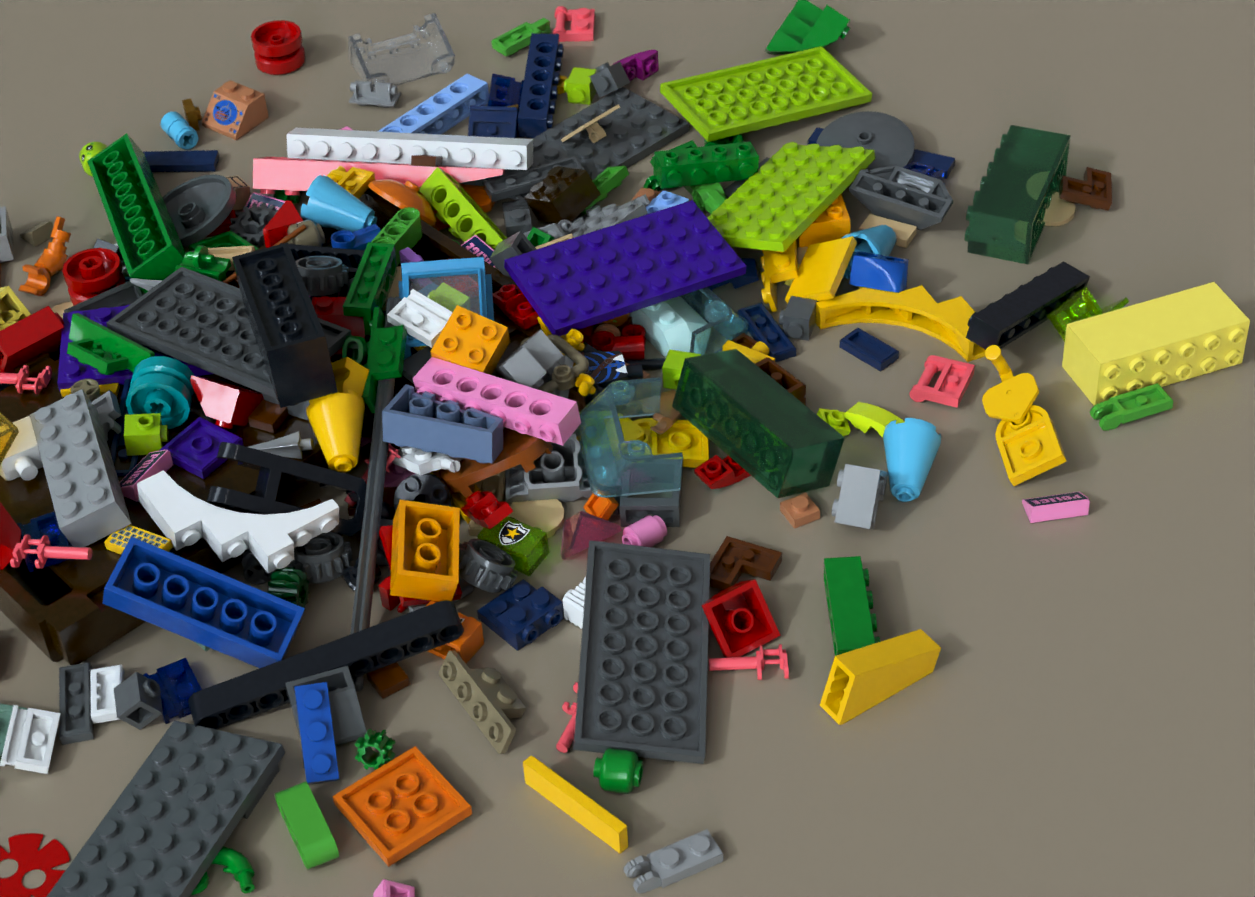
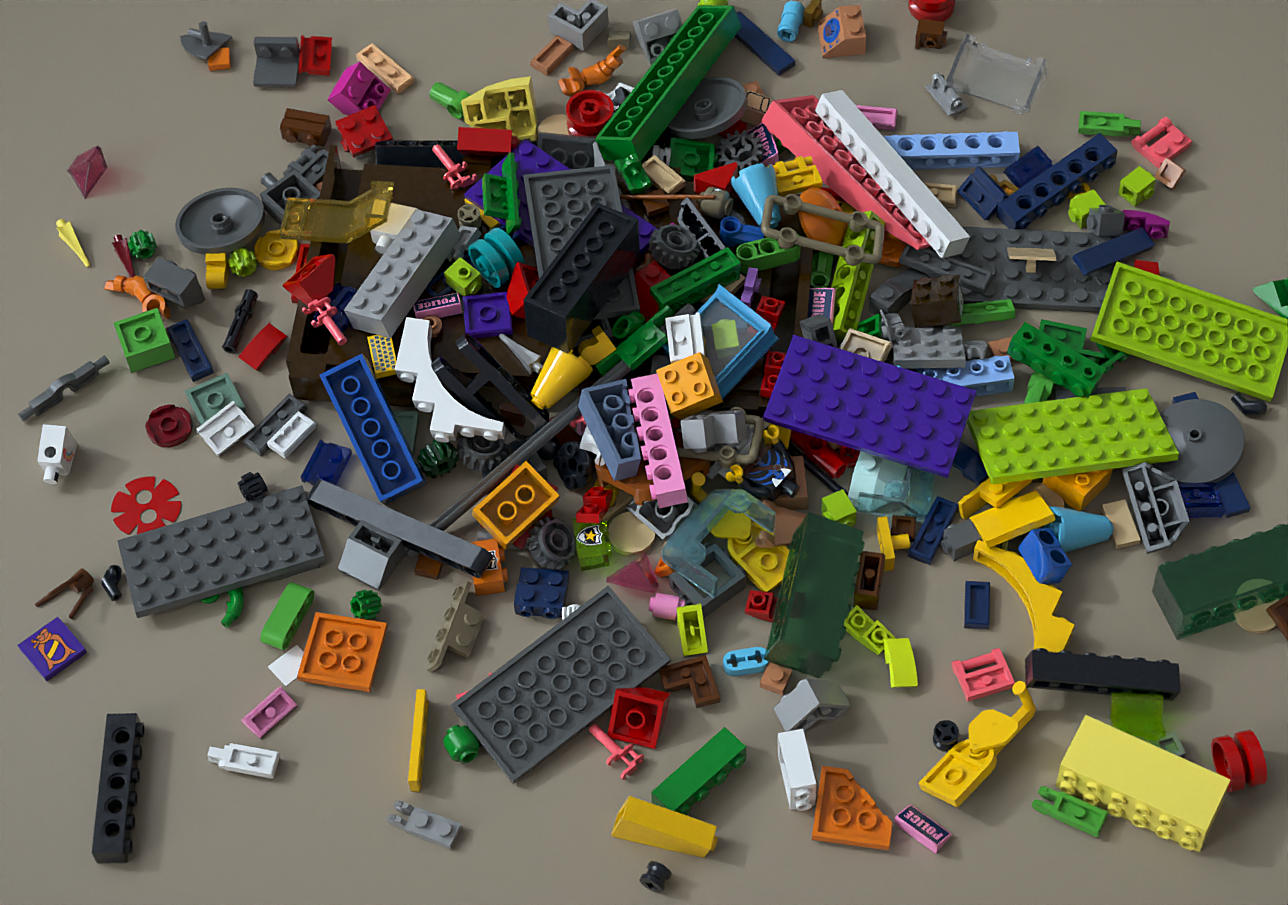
camera: 50 degrees right, 15 degrees up
(76, 202) = (656, 32): none -> light grey slope
(124, 758) = (252, 486): none -> black gear
(138, 700) = (295, 455): dark grey brick -> none
(308, 70) = (930, 34): none -> reddish brown brick
(316, 733) = (345, 566): blue plate -> none
(360, 865) = (287, 665): none -> white sticker
(408, 209) = (788, 237): none -> dark tan bar
(426, 160) = (880, 195): reddish brown tile -> none
(598, 51) = (1137, 186): none -> lime brick
(609, 32) = (1170, 173): none -> nougat plate
(641, 91) = (1113, 251): none -> dark blue tile
(687, 529) = (691, 629): none -> neon yellow slope
(755, 516) = (745, 660): none -> medium azure beam
(869, 105) = (1249, 407): none -> black arm
(909, 456) = (872, 710): medium azure cone -> none
(913, 555) = (797, 770): none -> white window
(924, 711) = (655, 876): none -> black wheel
(979, 436) = (945, 729): none -> black wheel
(990, 542) = (848, 813): none -> orange plate
(1187, 269) = (1239, 760): none -> red wheel

